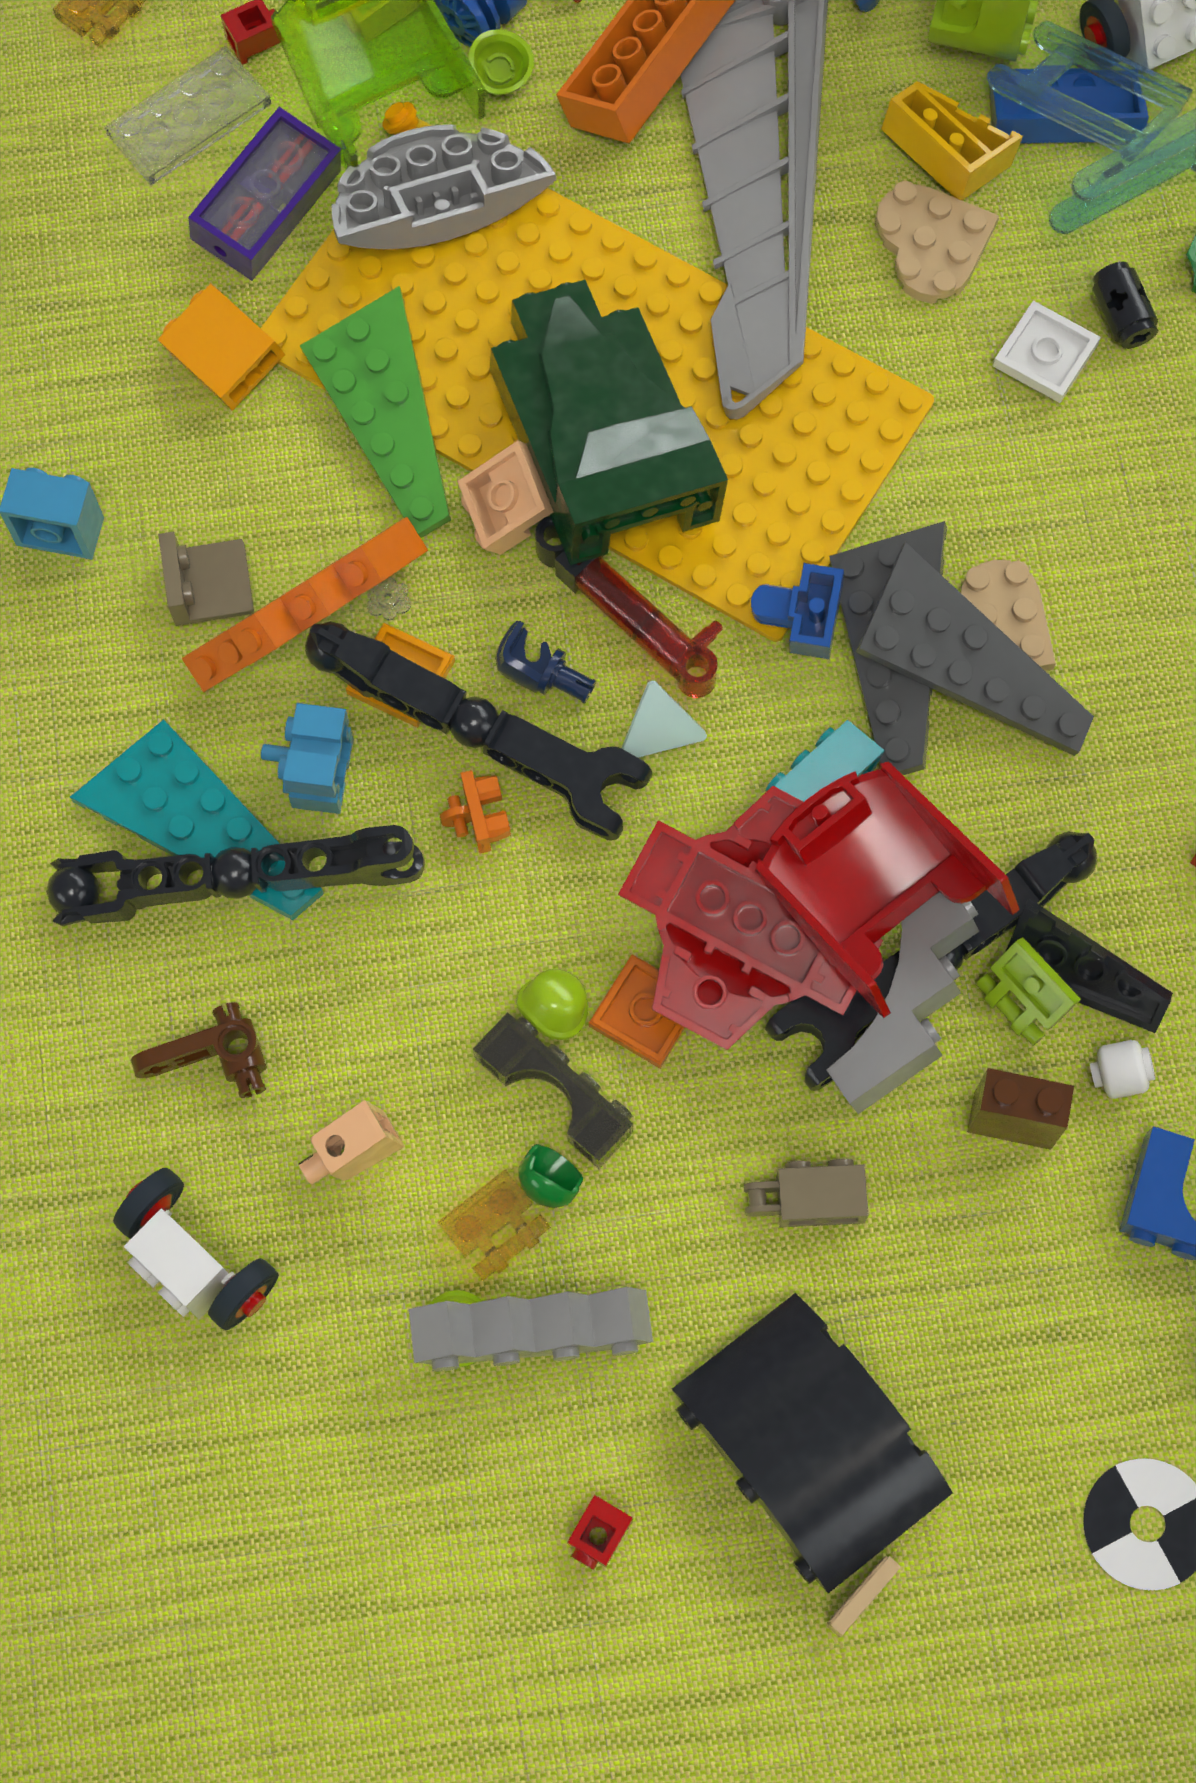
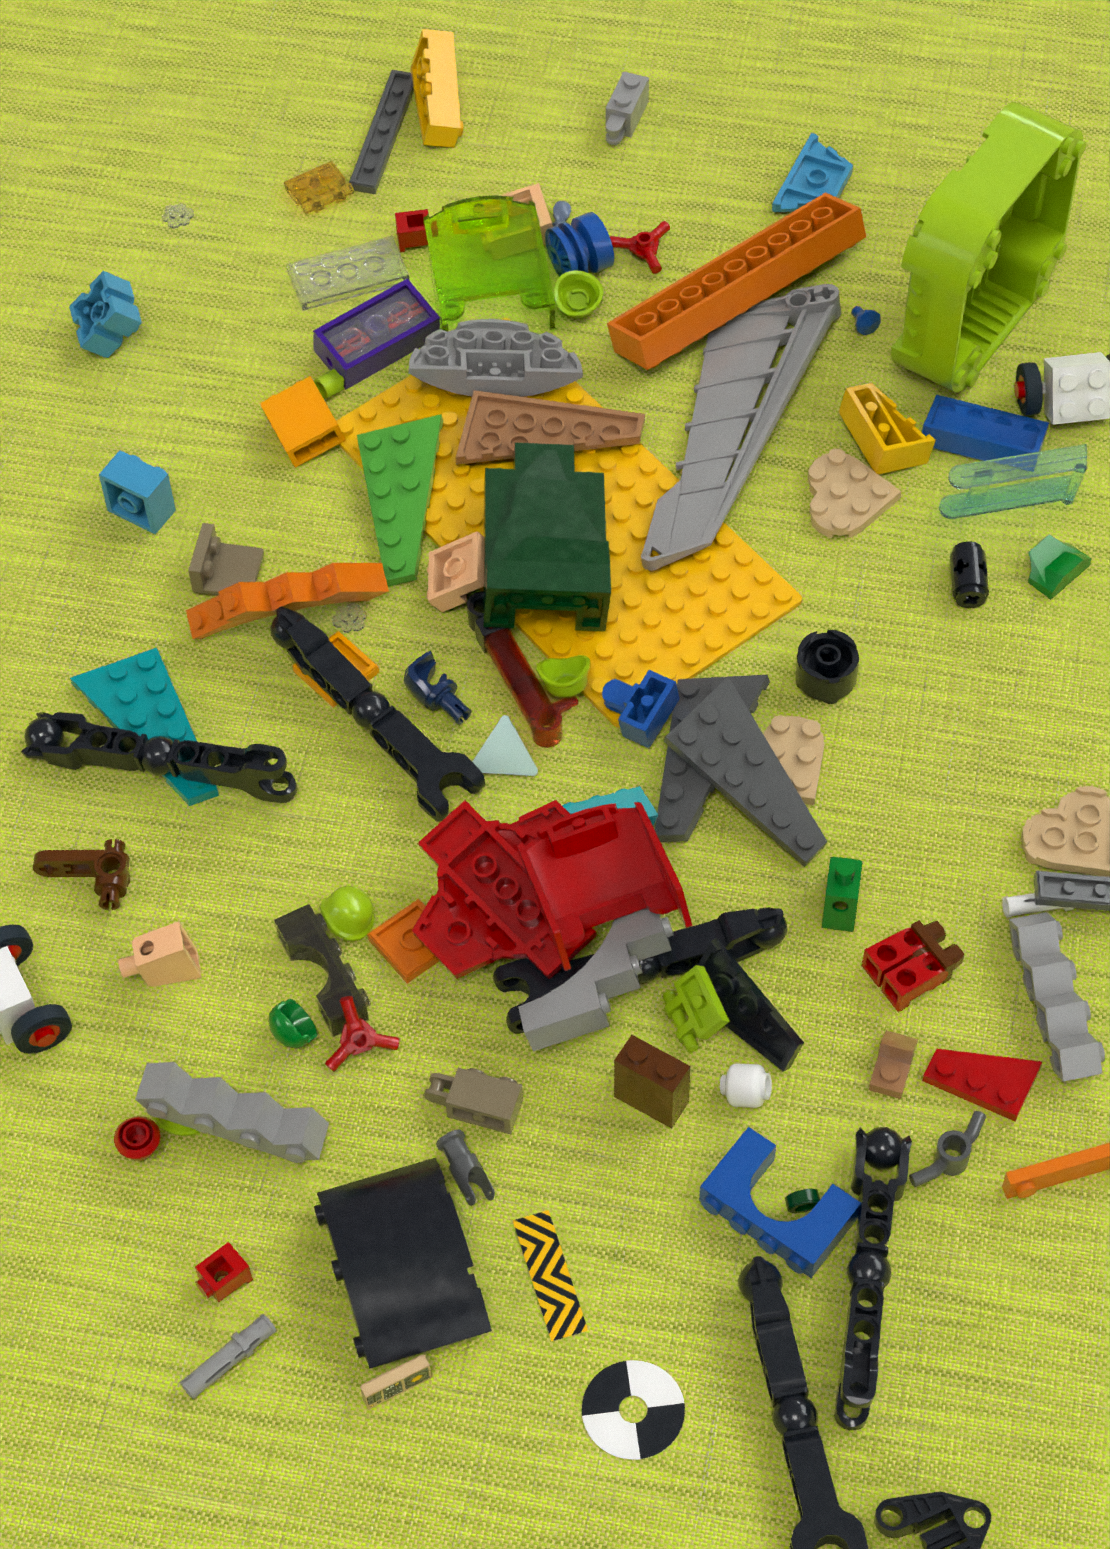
camera: 20 degrees right, 15 degrees down
(232, 280) = (329, 384): none -> lime hose
(317, 757) = (248, 699): dark azure brick -> none
(400, 118) = (494, 311): light orange plate -> none
(419, 1381) = (137, 1138): none -> red cone
(484, 270) = (502, 420): none -> medium nougat wing
(486, 828) = (344, 771): orange hips -> none
(487, 1213) = (237, 1037): clear yellow plate -> none
(635, 1166) = (357, 1036): none -> red piece
(652, 1627) = (228, 1356): none -> light grey pin
(695, 596) = (564, 676): none -> lime helmet
(832, 1290) = (464, 1166): none -> dark grey piece
(983, 1389) = (550, 1276): none -> sticker
(1006, 482) = (827, 665): none -> black brick
(1046, 351) = (897, 590): white plate -> none
(1071, 49) = (995, 394): clear light blue piece -> none
(1139, 774) = (843, 886): none -> green torso

